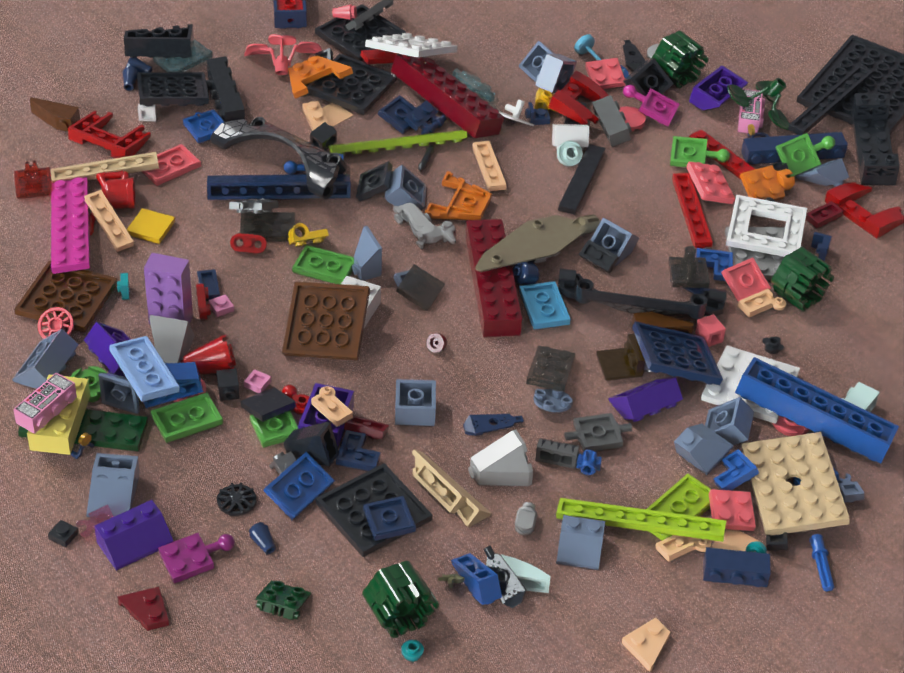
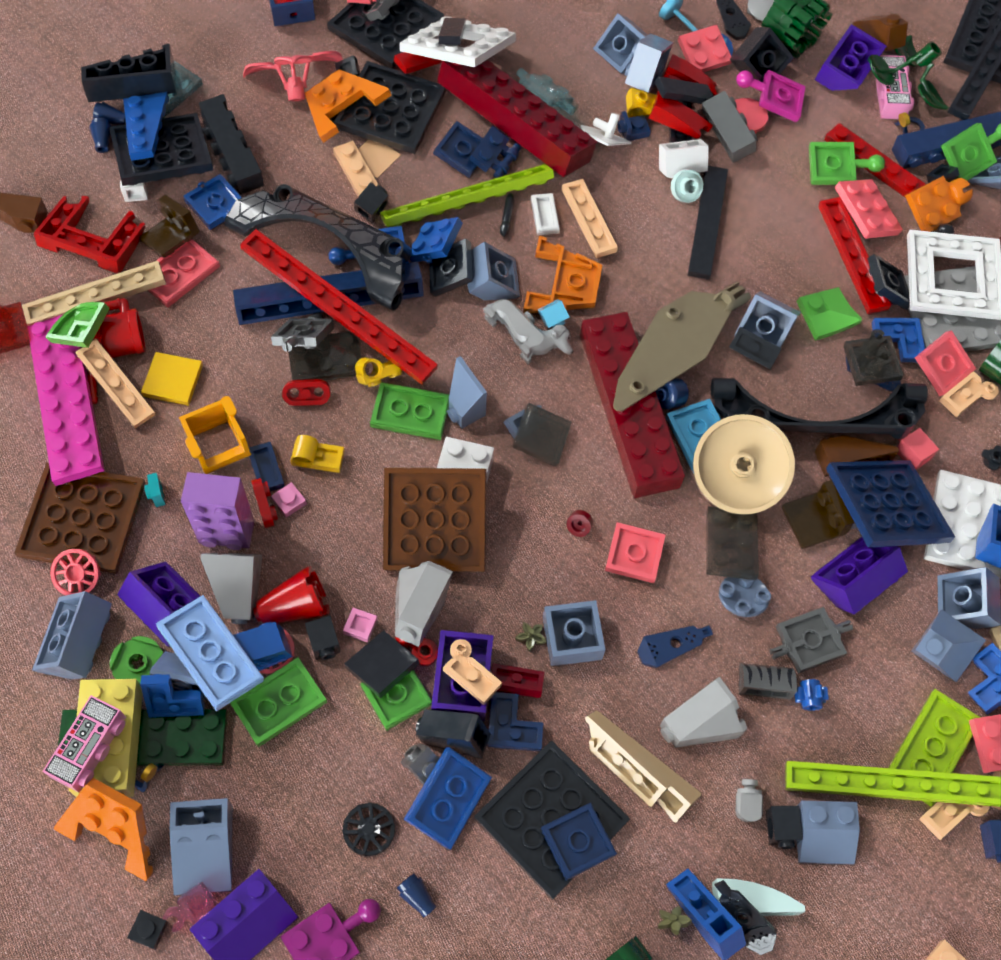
camera: 10 degrees left, 20 degrees up
(54, 452) = (112, 816): none -> orange wing
(90, 181) = (78, 324): none -> bright green plate
(105, 400) = (164, 702): none -> blue plate
(163, 70) = (143, 123): none -> blue wing
(175, 137) = (173, 230): none -> dark brown bracket
(179, 248) = (206, 419): none -> light orange piece
(245, 280) = (315, 455): none -> yellow plate
(284, 189) = (339, 307): none -> red plate
(306, 366) = (419, 600): none -> light grey slope
(366, 163) = (435, 239): none -> blue plate
(384, 405) = (531, 636): none -> olive plant
(406, 36) = (452, 31): none -> black tile
(446, 214) = (553, 314): none -> medium azure plate
(456, 160) = (545, 214): none -> white tile
(475, 365) = (635, 552): none -> coral plate
(548, 535) = (784, 826): none -> black brick
(567, 315) = (743, 464): none -> tan dish
(577, 91) = (683, 90): none -> black tile
(661, 243) = (827, 313): none -> bright green plate
(713, 225) = (889, 281): none -> black plate
(752, 72) = (885, 28): none -> reddish brown slope

